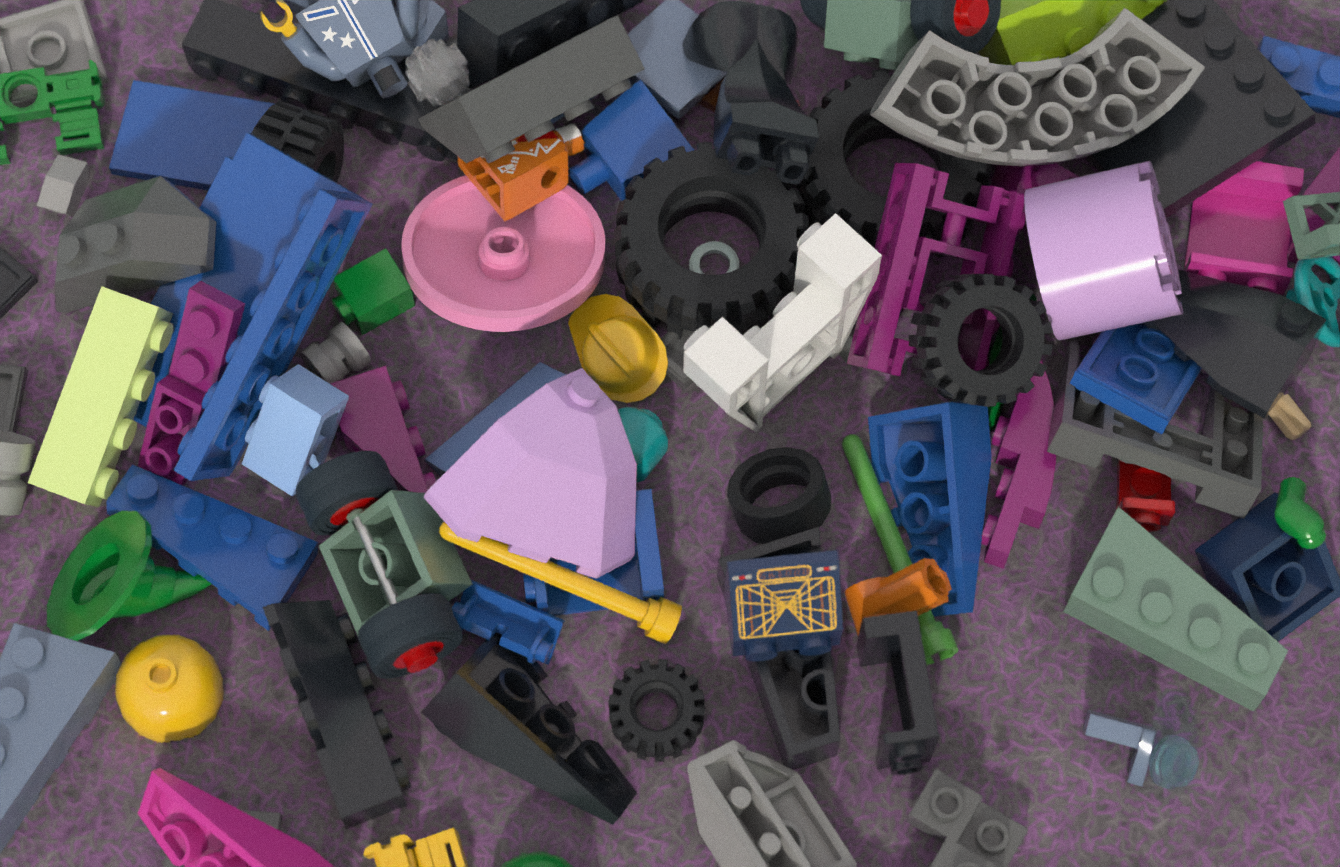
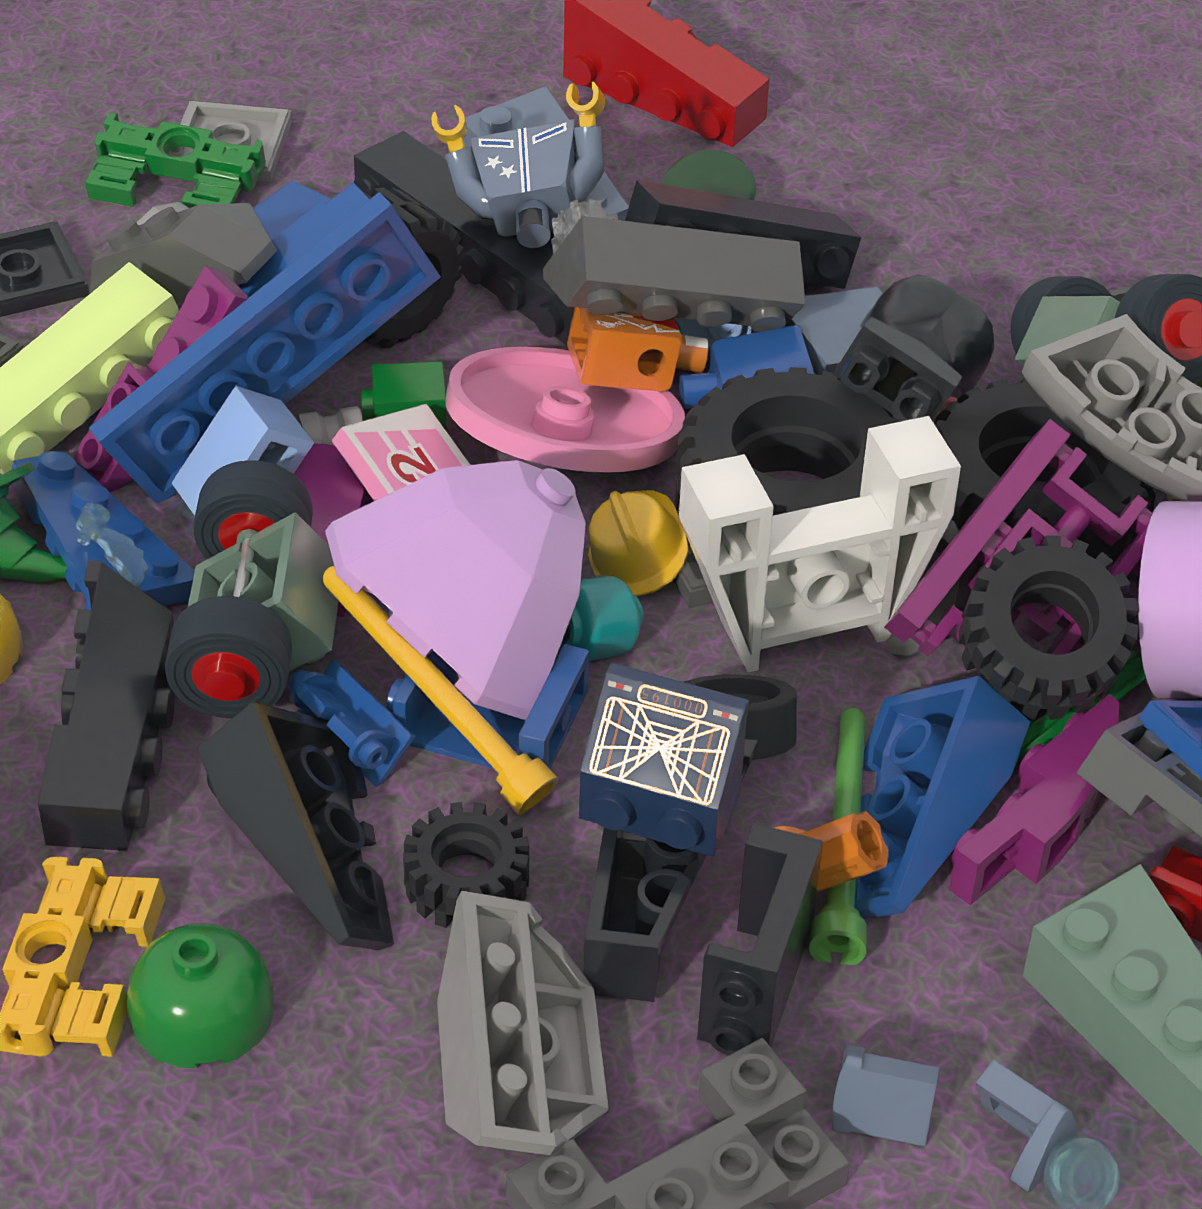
camera: 25 degrees right, 25 degrees down
(252, 558) = (118, 547): none -> clear light blue piece
(423, 369) = (397, 449): none -> tile
(1022, 764) = (883, 1096): none -> sand blue tile

